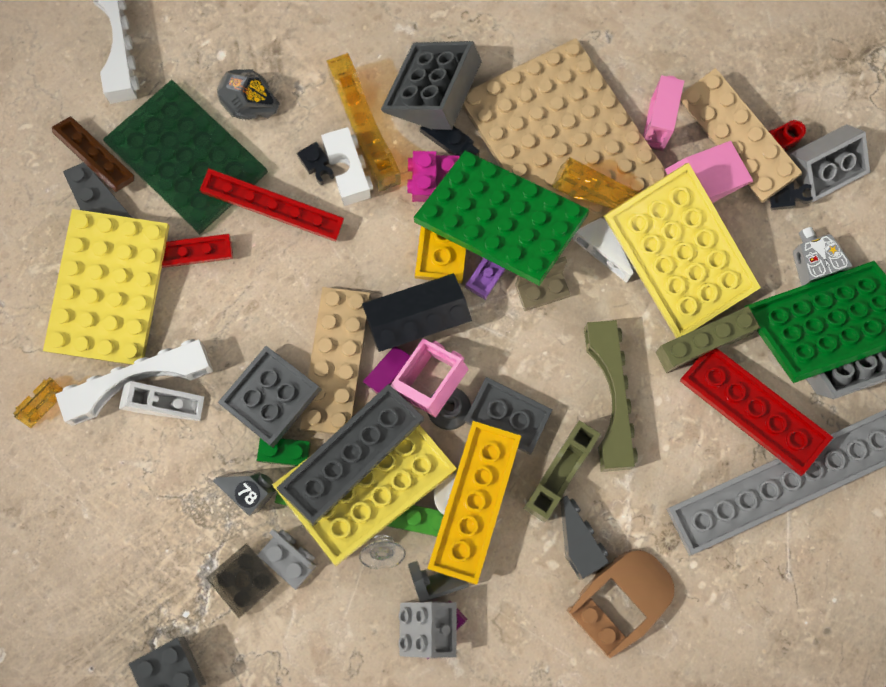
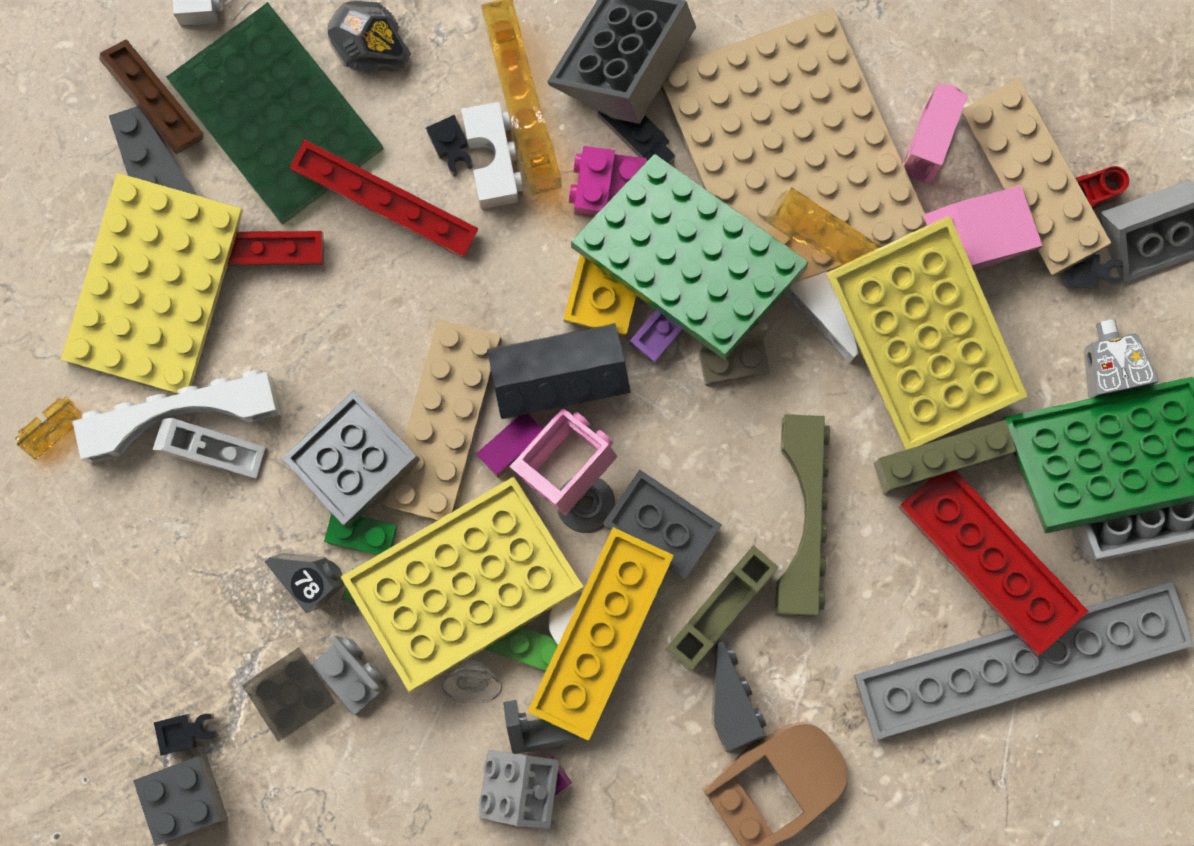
camera: 10 degrees right, 5 degrees up
(161, 621) = (179, 733): none -> black plate
(350, 454) = (447, 550): dark grey plate -> none

